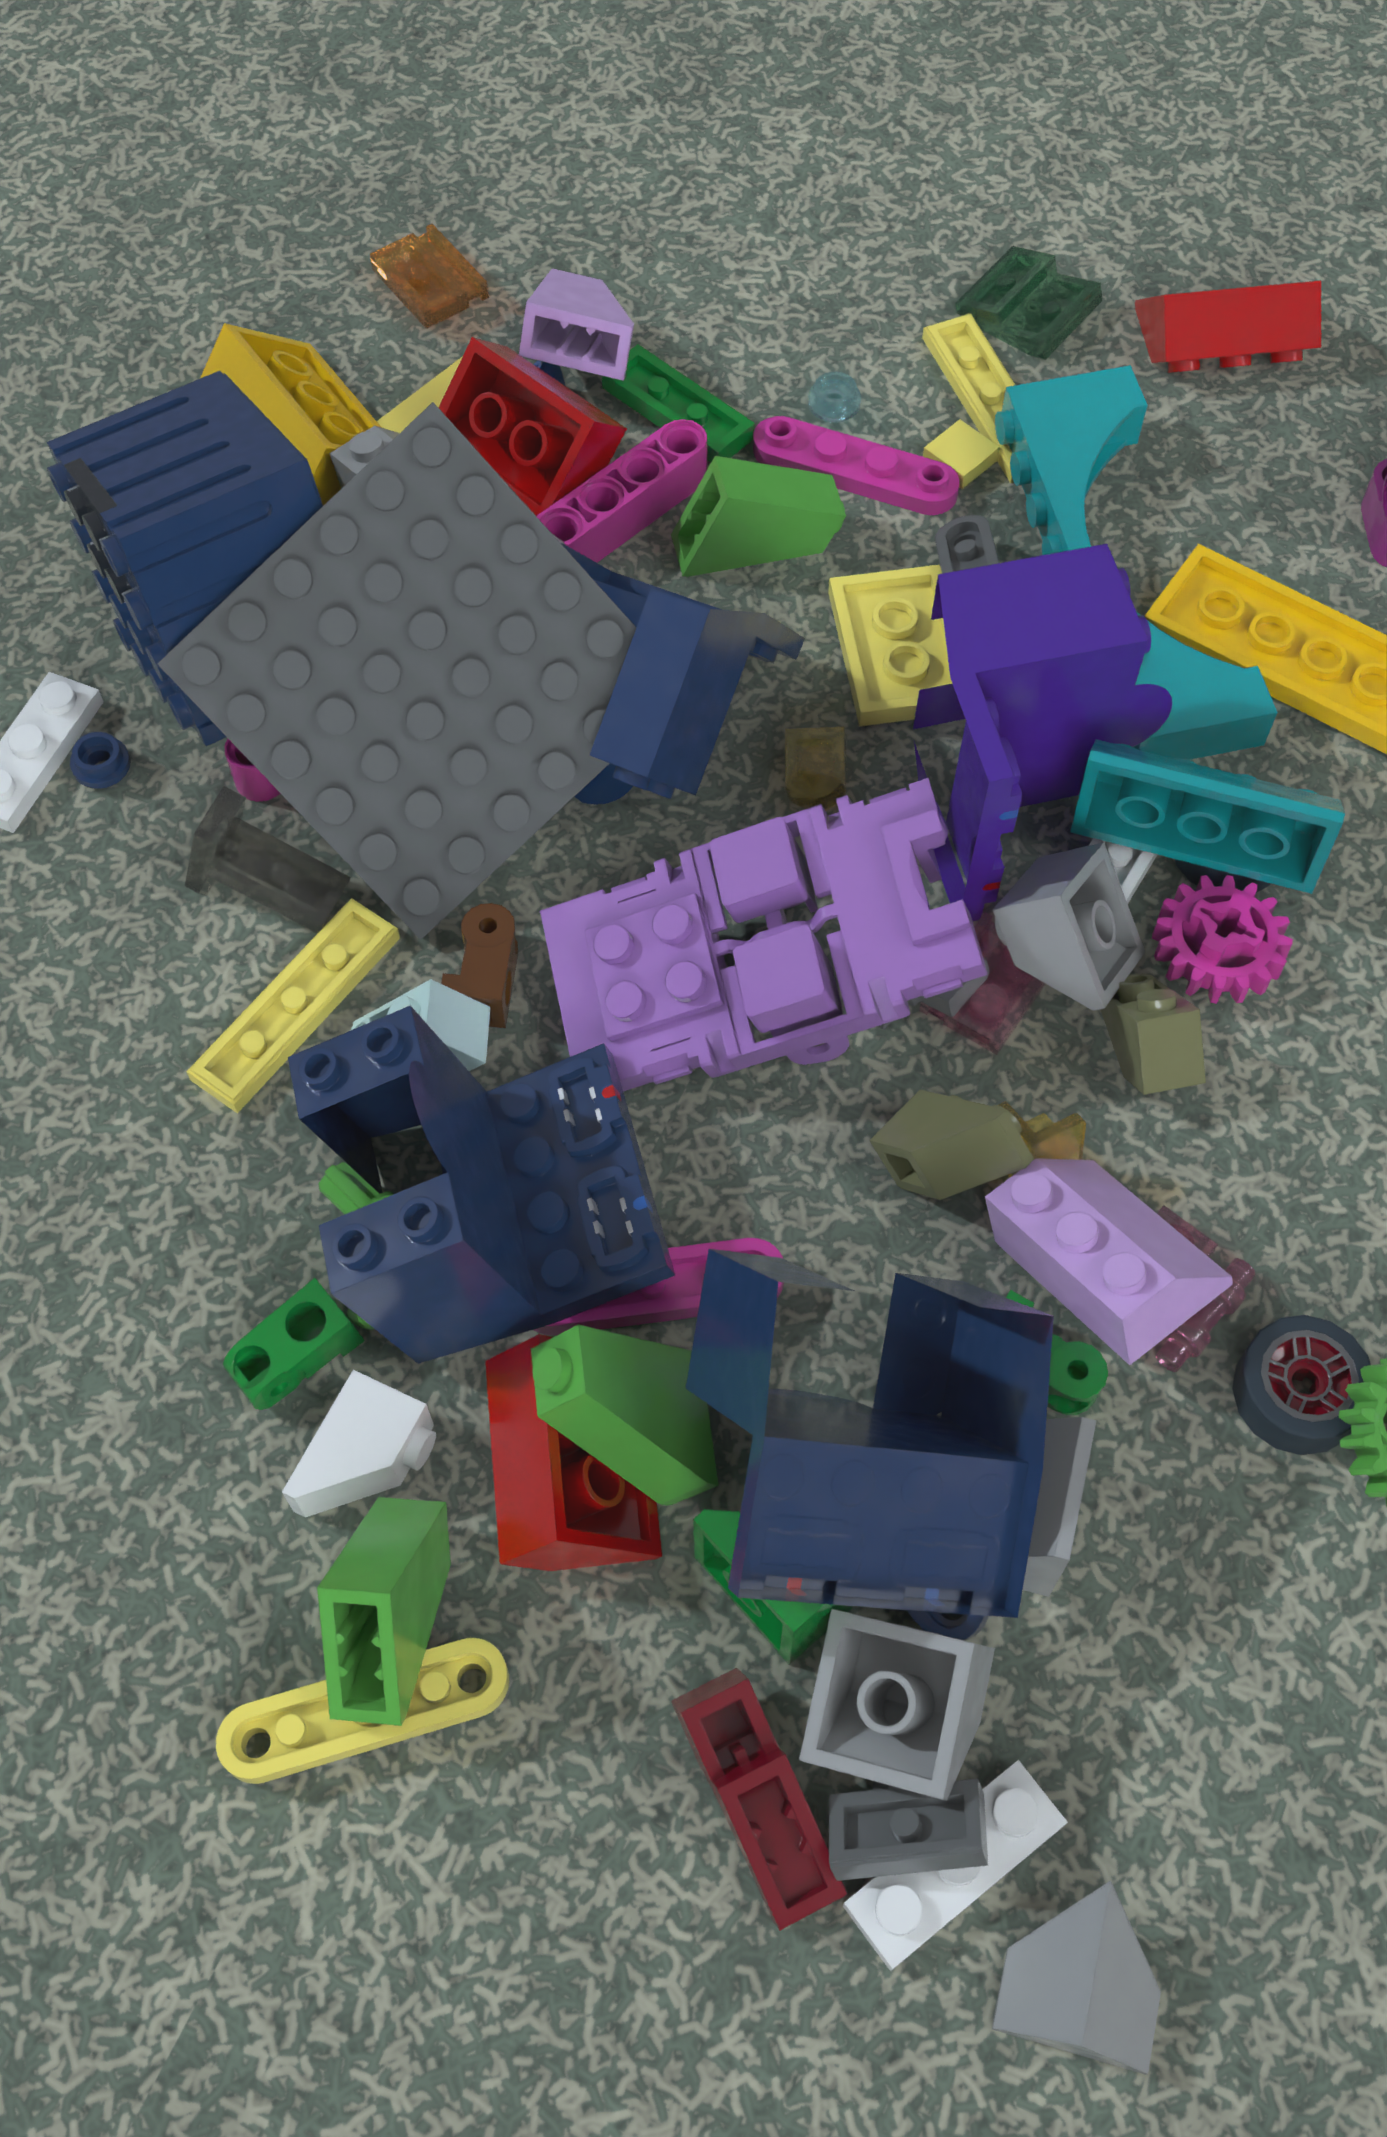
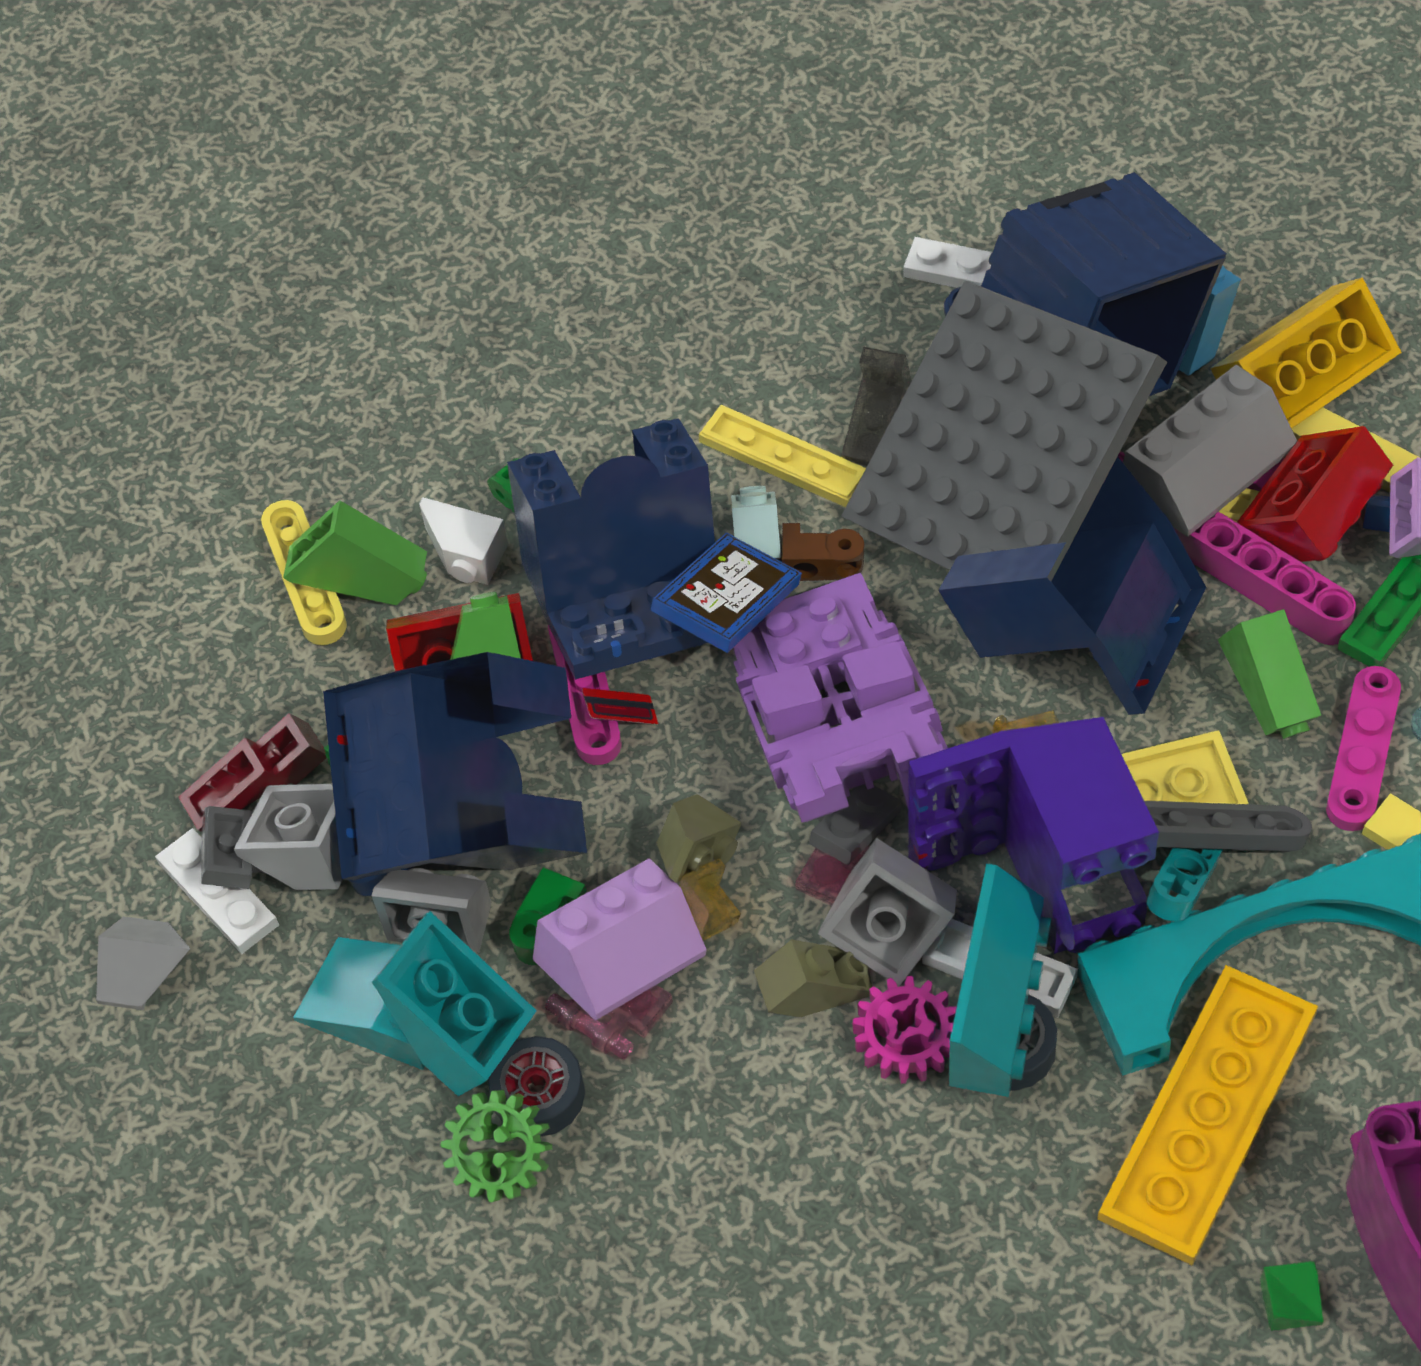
camera: 90 degrees right, 5 degrees down
(570, 1056) = (726, 592): none -> tile
(699, 1230) = (619, 706): none -> sticker
(1163, 1599) = (349, 1006): none -> teal slope
(1242, 1449) = (451, 1005): none -> teal slope

